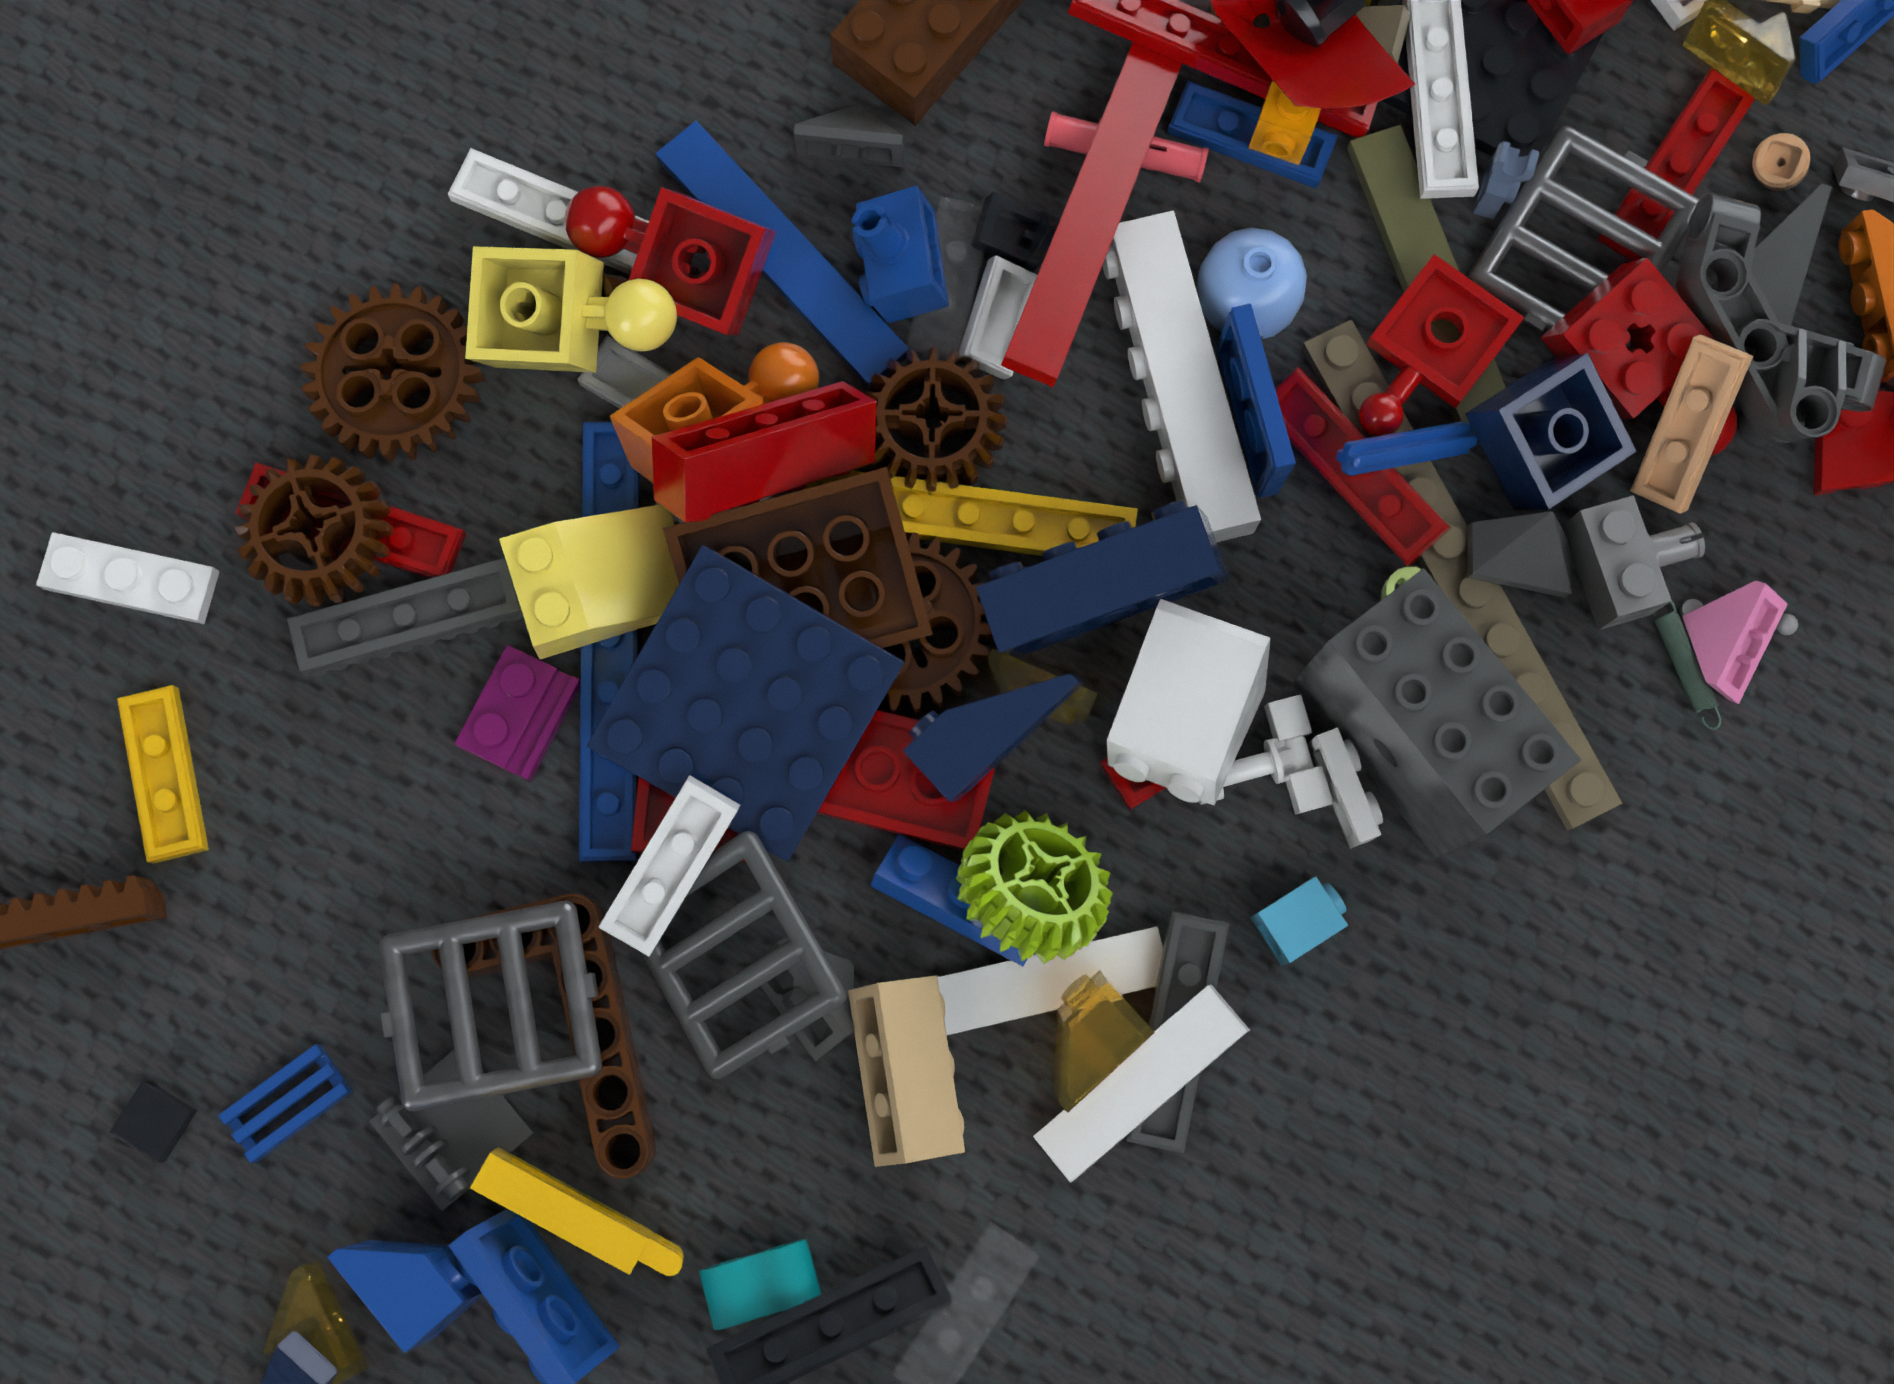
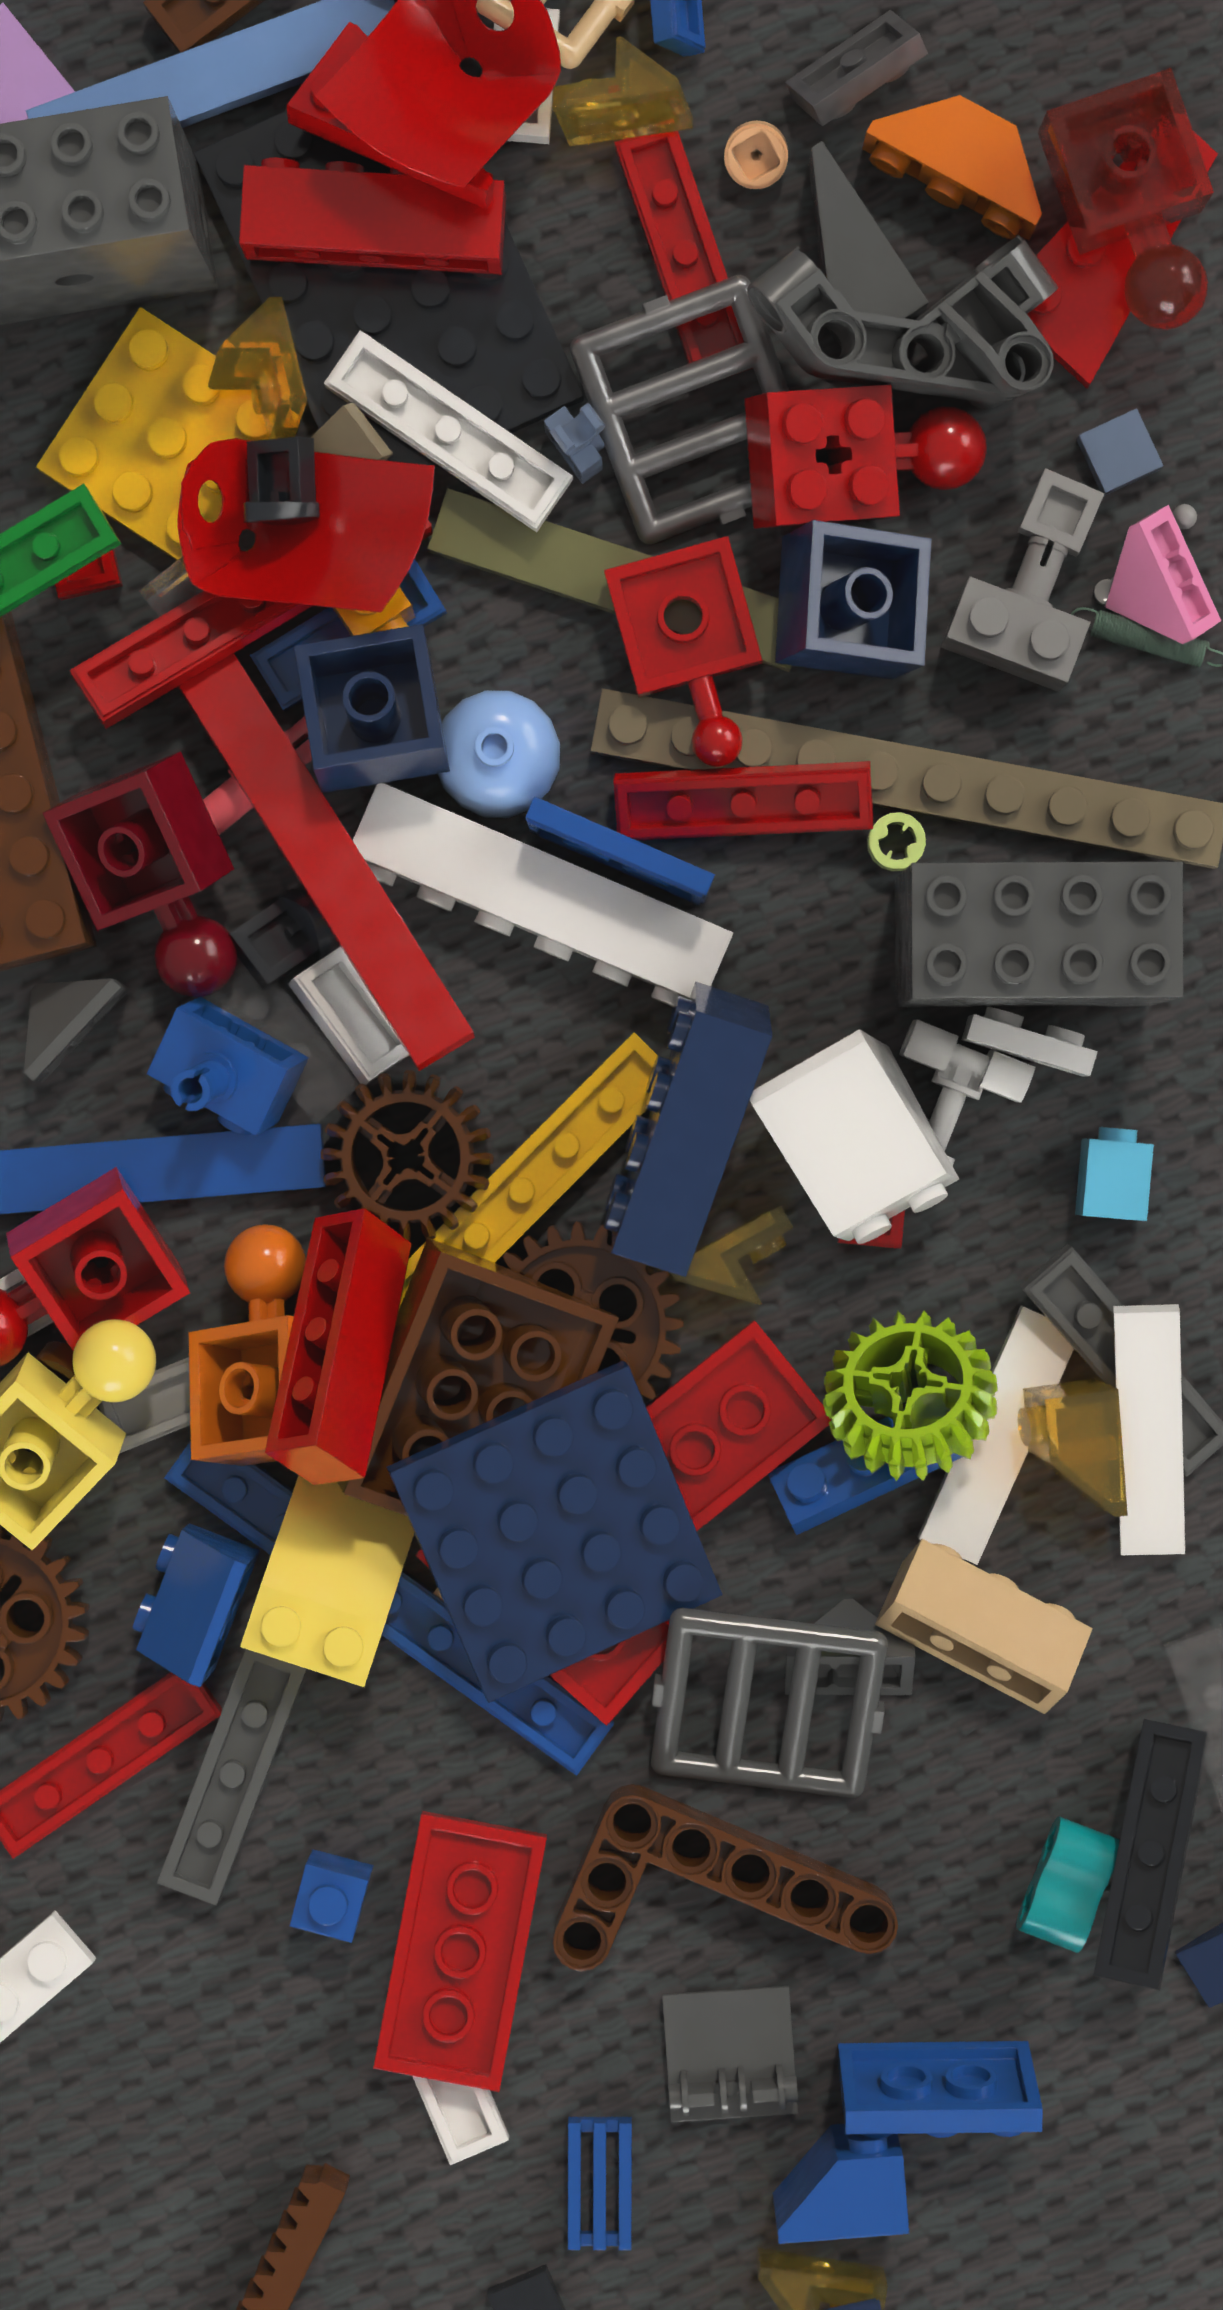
camera: 45 degrees left, 10 degrees up
(162, 774) = (214, 2090): yellow tile -> none
(270, 539) = (66, 1795): reddish brown gear -> none
(281, 947) = (462, 2118): none -> white tile
(364, 747) = (331, 1895): none -> blue brick
(388, 871) = (460, 1951): none -> red plate
(449, 940) = (740, 1955): flat silver bar -> none
(507, 499) = (195, 1602): none -> blue slope
(518, 713) = (398, 1733): magenta plate -> none
(574, 1215) = (892, 2003): yellow hinge -> none
(669, 865) = (652, 1705): white plate -> none
(975, 737) = (740, 1343): dark blue slope -> none
(1006, 92) = (145, 848): none -> dark red brick
(1220, 163) = (371, 708): none -> dark blue brick
(1406, 448) = (768, 746): blue axle -> none
(1521, 553) = (942, 715): dark grey slope -> none
(1691, 423) = (944, 468): light nougat tile -> none
(1726, 530) = (1061, 511): none -> light grey tile
(1792, 547) = (1119, 452): none -> sand blue tile

